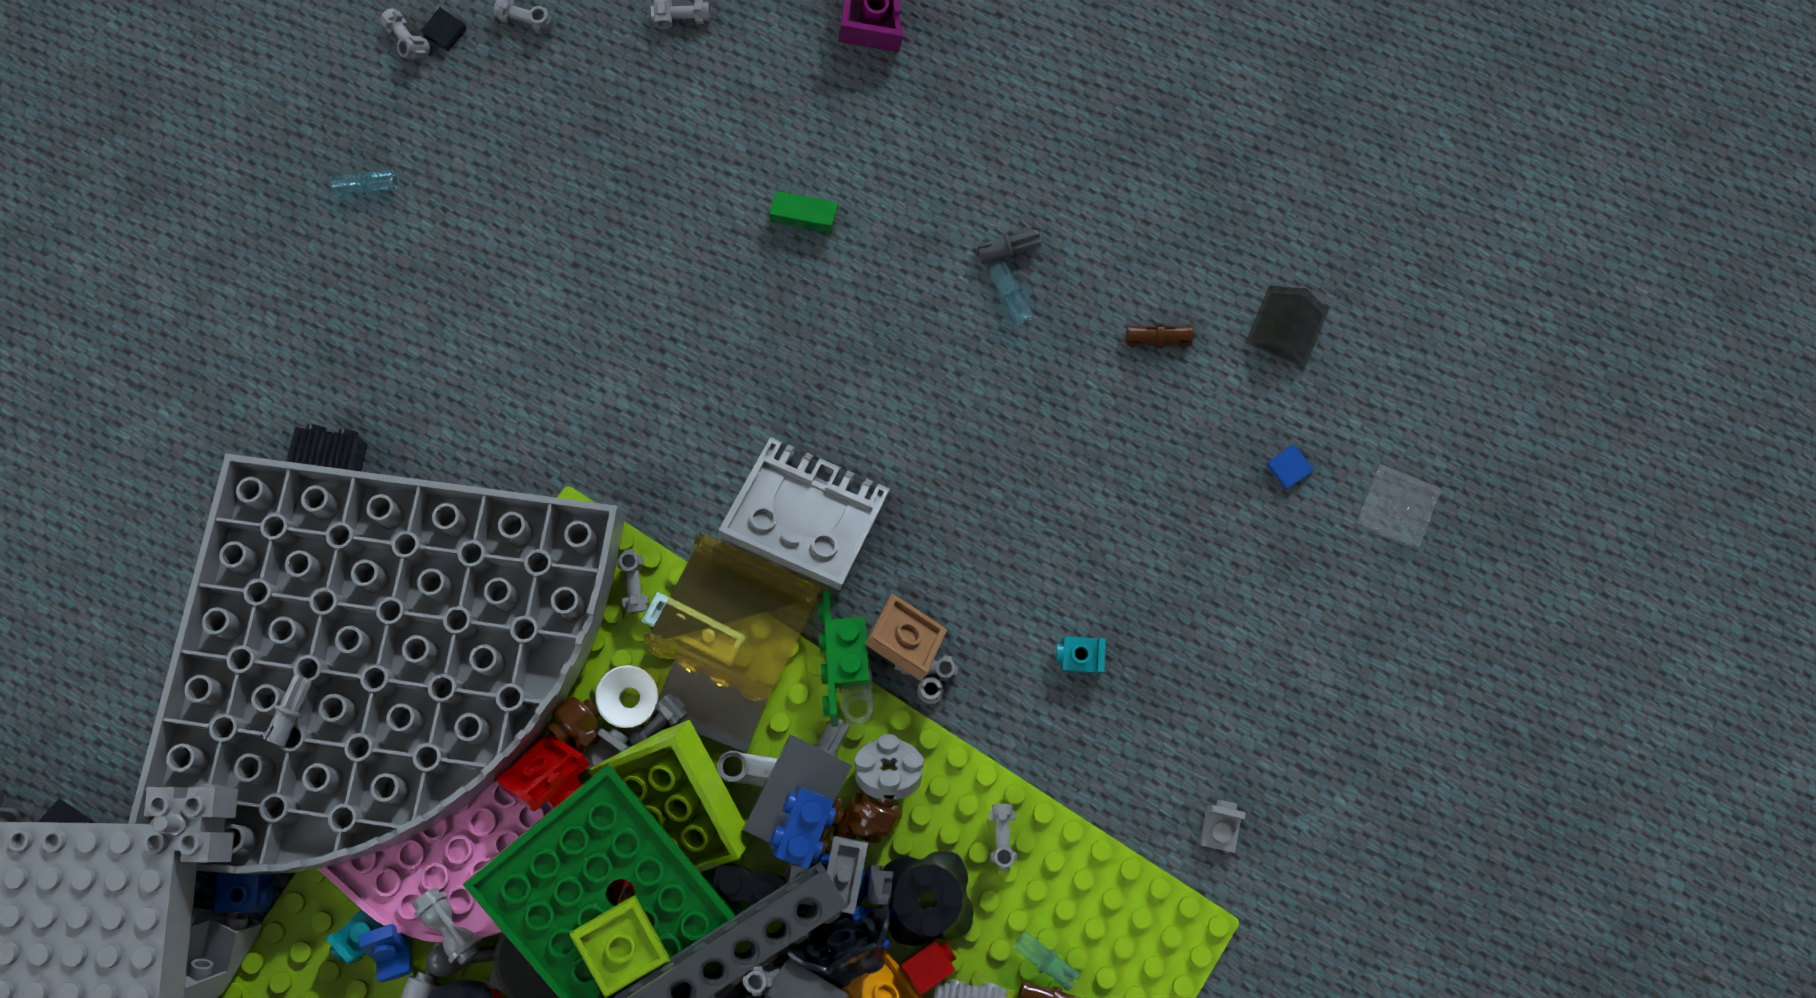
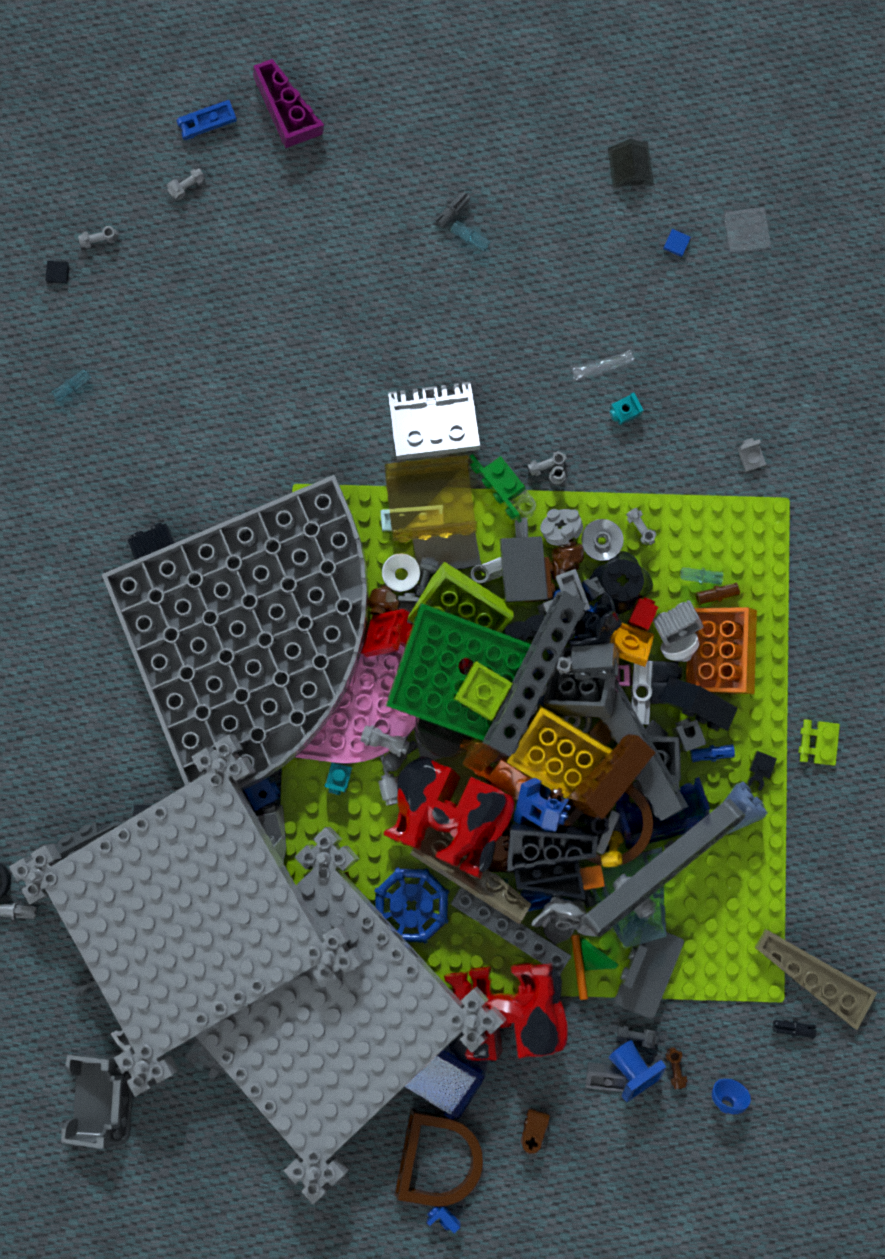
camera: 30 degrees left, 5 degrees up
(287, 711) = (232, 681): light grey axle -> none
(389, 950) = (360, 775): blue bracket -> none
(408, 46) = (45, 293): light grey bar -> none
(632, 564) = (357, 504): light grey bar -> none
(802, 827) = (537, 580): blue brick -> none
(803, 212) = (327, 257): green slope -> none
(906, 637) = (528, 454): medium nougat tile -> none
(954, 826) = (602, 529): none -> light grey dish
(1093, 576) = (606, 364): none -> clear pin
(1159, 335) = (564, 211): reddish brown pin -> none

